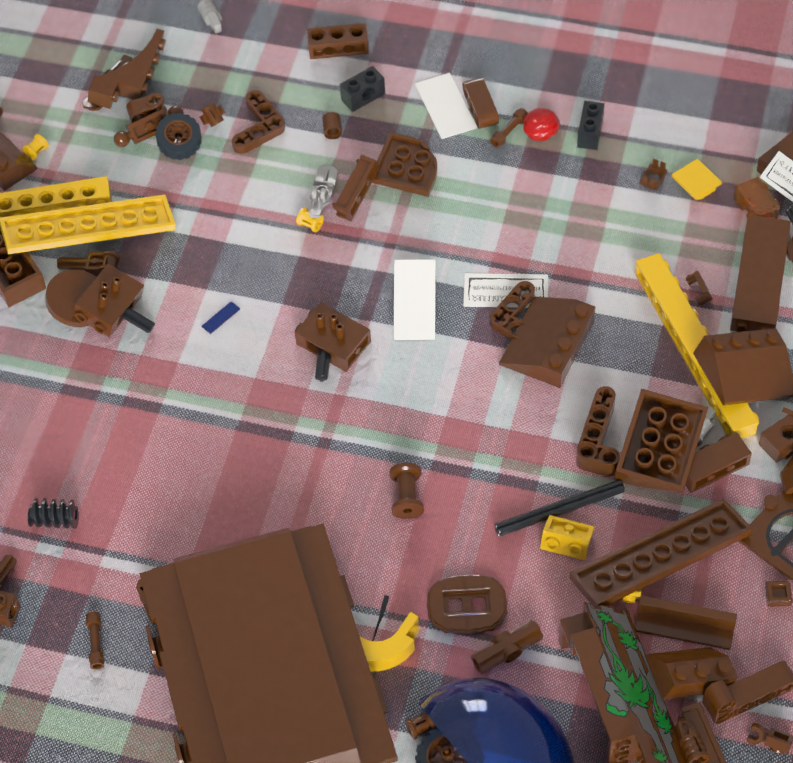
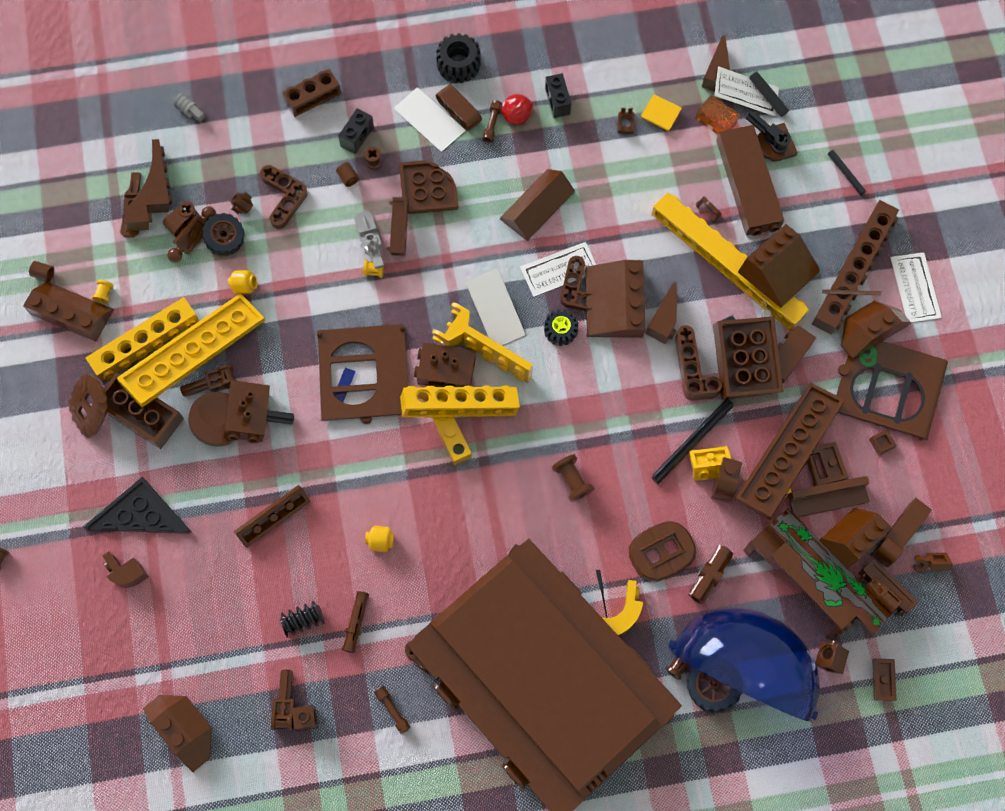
camera: 30 degrees left, 15 degrees up
(79, 407) = (272, 516): none -> reddish brown brick
(87, 559) = (353, 629): none -> reddish brown pin
(173, 185) = (242, 282): none -> yellow head
(174, 471) = (380, 539): none -> yellow head
(271, 330) = (391, 369): none -> reddish brown door
(302, 392) = (451, 436): none -> yellow piece
(325, 369) = (452, 407): none -> yellow brick
(364, 308) = (461, 333): none -> yellow hinge
(368, 117) = (373, 158): none -> reddish brown bush
(477, 336) = (559, 321): none -> black wheel
(504, 56) = (462, 46): none -> black tyre
(516, 220) = (538, 203): none -> reddish brown slope
(572, 556) = (727, 480): none -> reddish brown brick
(593, 373) = (664, 320): none -> reddish brown slope
(705, 587) = (831, 464): none -> reddish brown plate

